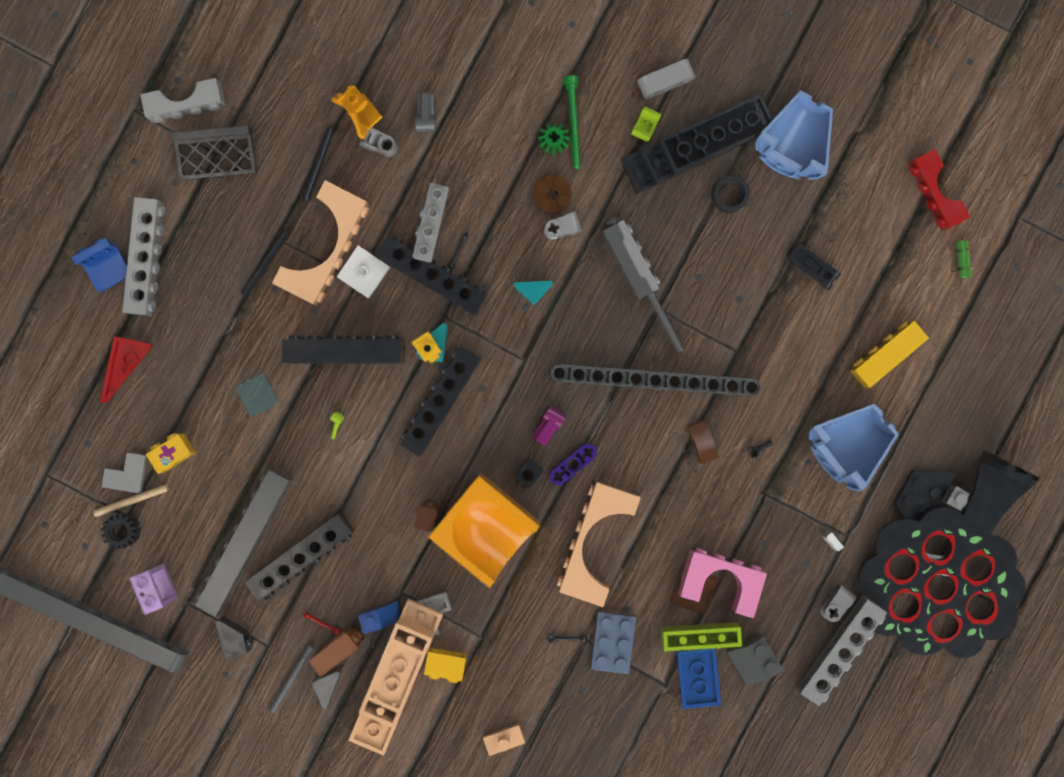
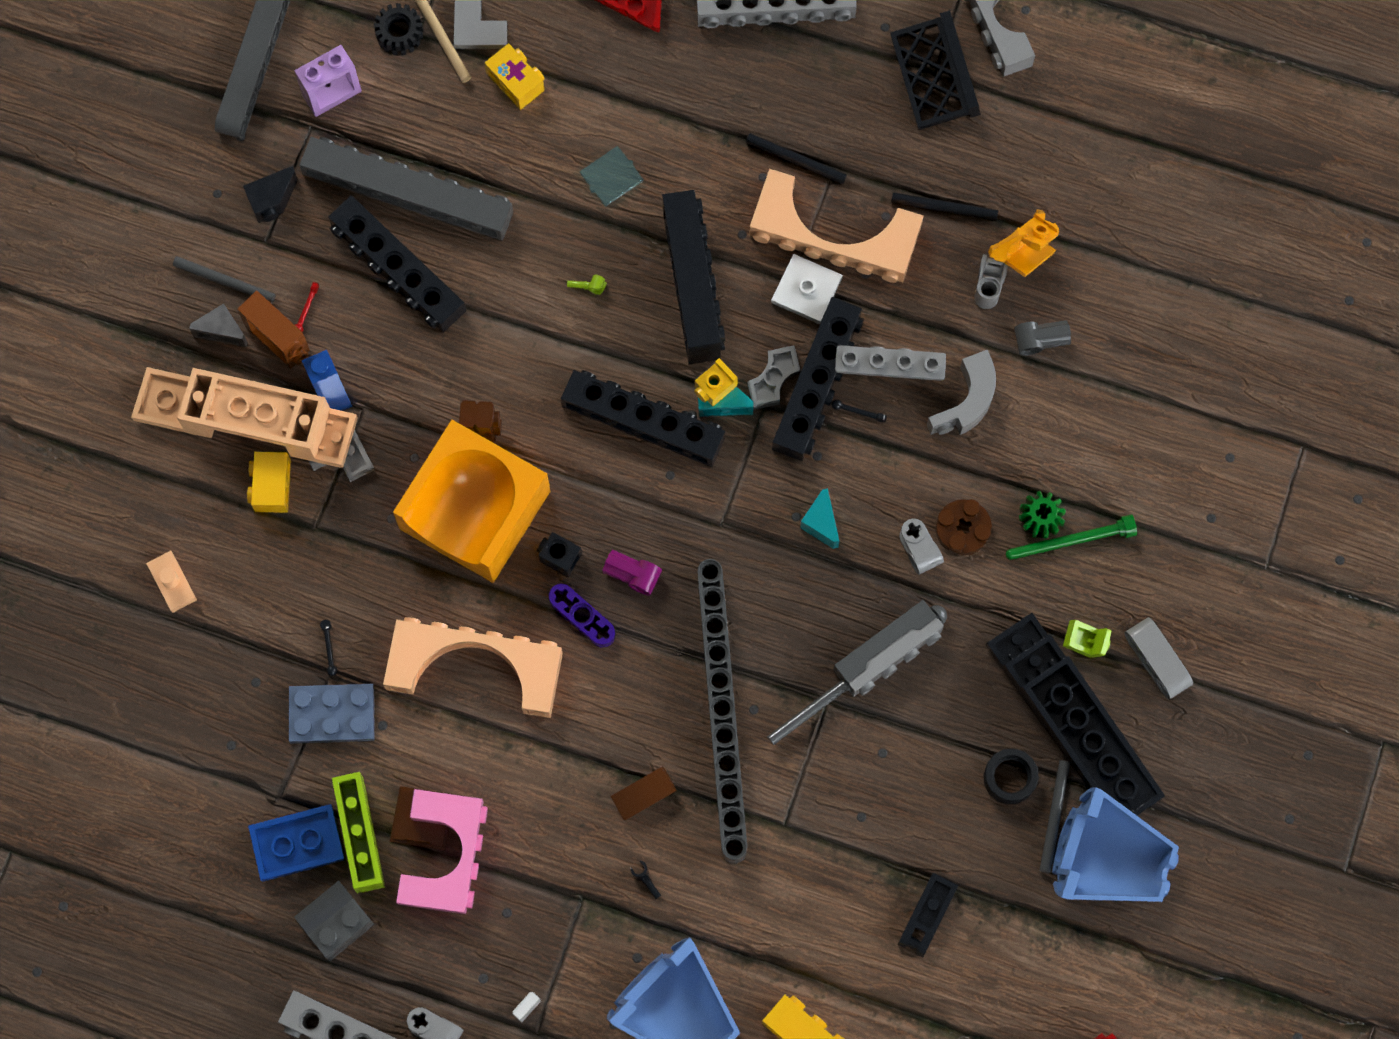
camera: 80 degrees right, 15 degrees down
(416, 298) = (780, 367): none -> light grey tile
(454, 162) = (981, 383): none -> light grey arch
(760, 170) = (1054, 817): none -> dark grey bar

